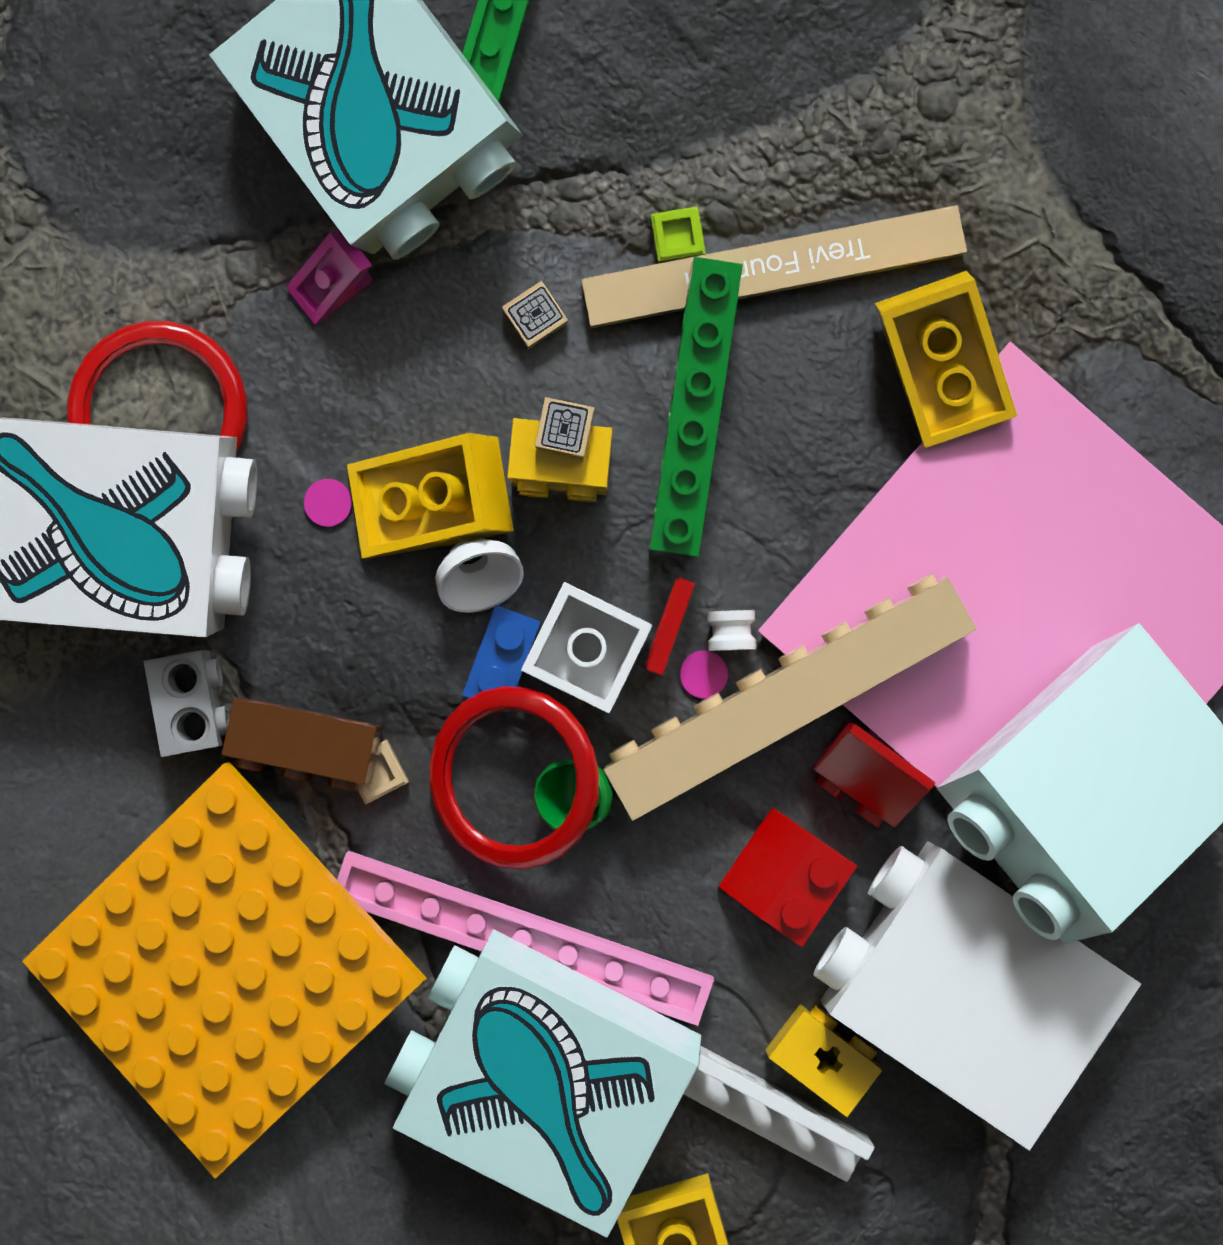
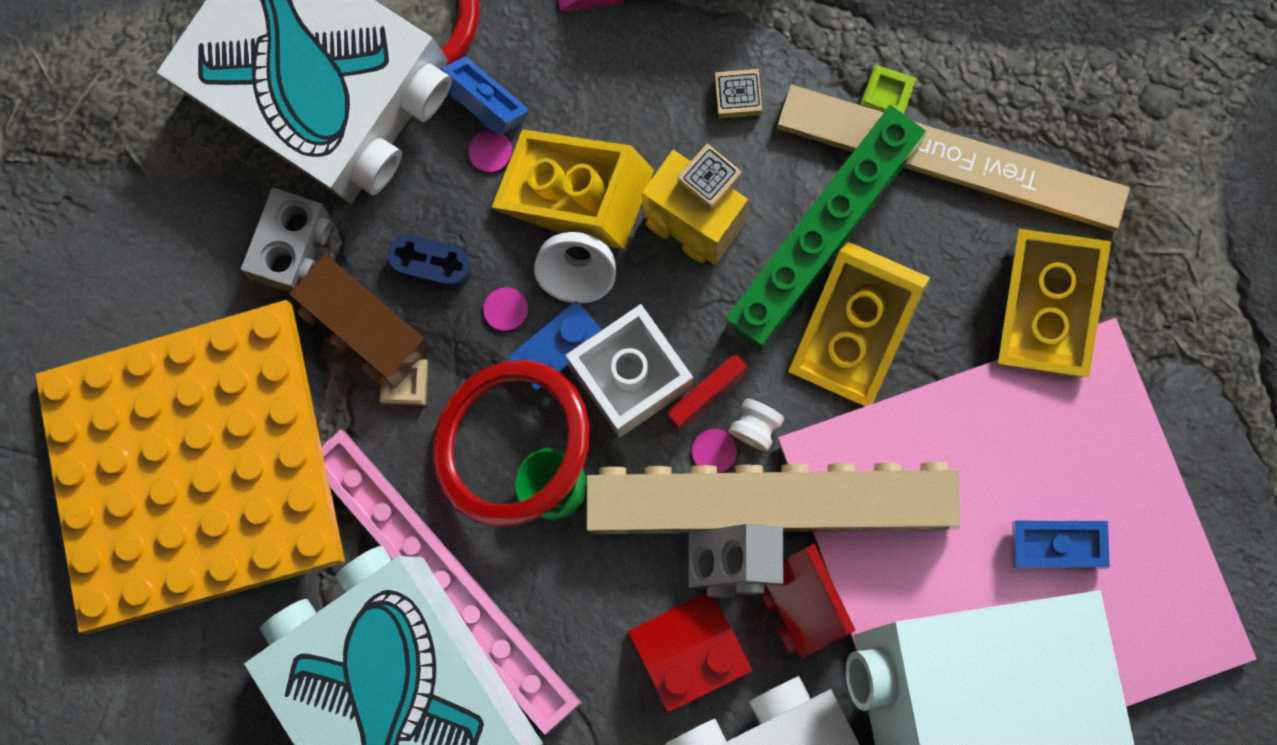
camera: 40 degrees right, 10 degrees down
(292, 454) = (484, 97): none -> blue plate
(336, 655) = (431, 251): none -> dark blue beam
(431, 648) = (505, 309): none -> dark pink piece
(775, 479) = (858, 324): none -> yellow slope
(786, 772) = (736, 558): none -> light grey brick
(1073, 589) = (1060, 544): none -> blue plate

